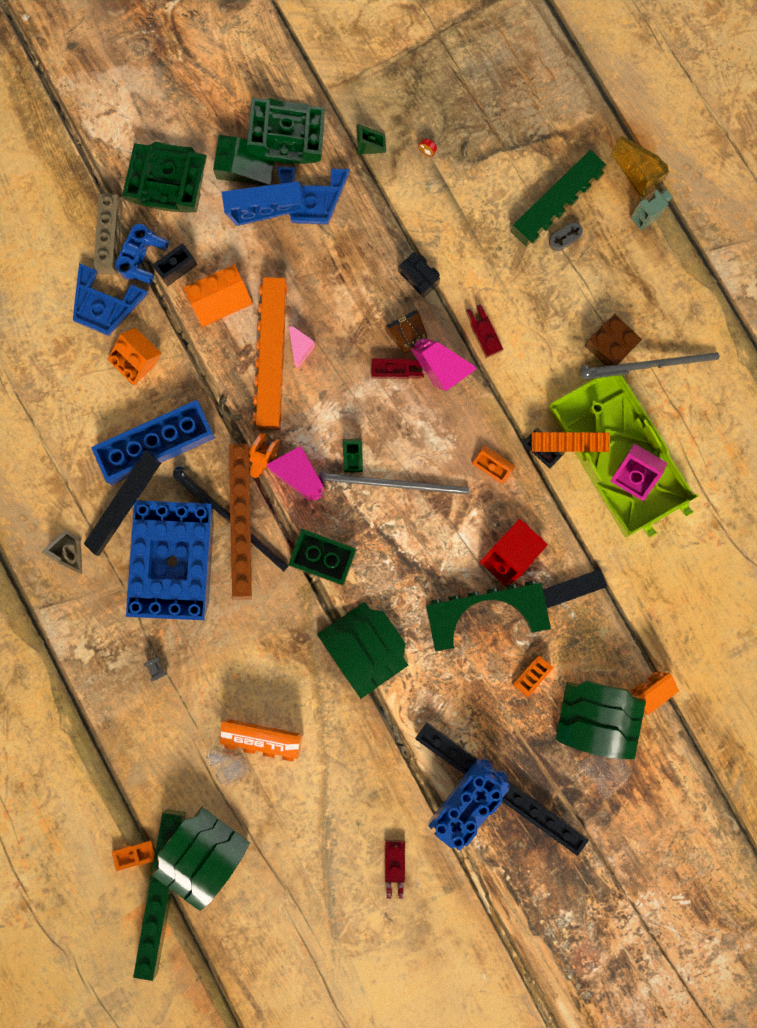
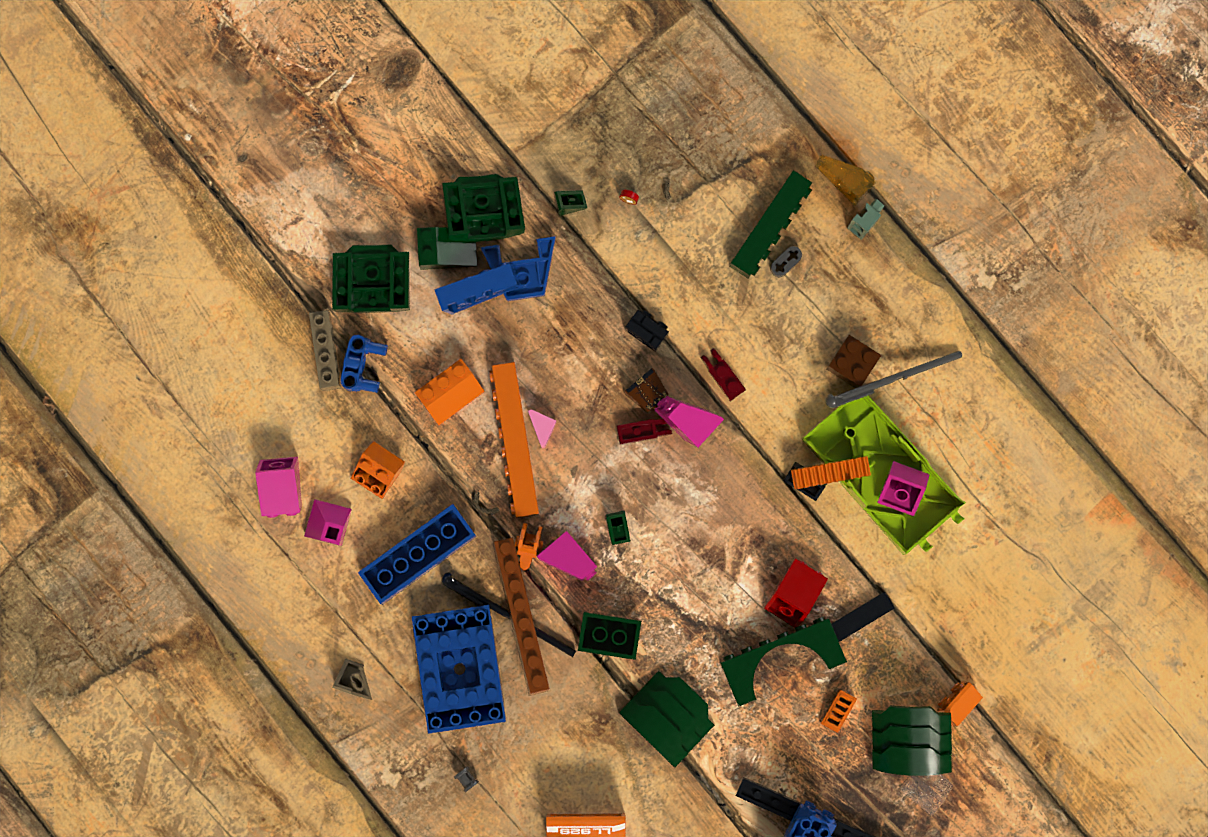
camera: 15 degrees left, 0 degrees up
(35, 353) = (279, 486): none -> dark pink slope
(76, 397) = (328, 522): none -> dark pink slope
(101, 310) = (331, 429): blue wing -> none
(122, 503) = (400, 622): black tile -> none
(175, 264) = (400, 369): black brick -> none
(392, 483) = (662, 547): dark grey bar -> none
(493, 464) = (759, 508): orange slope -> none

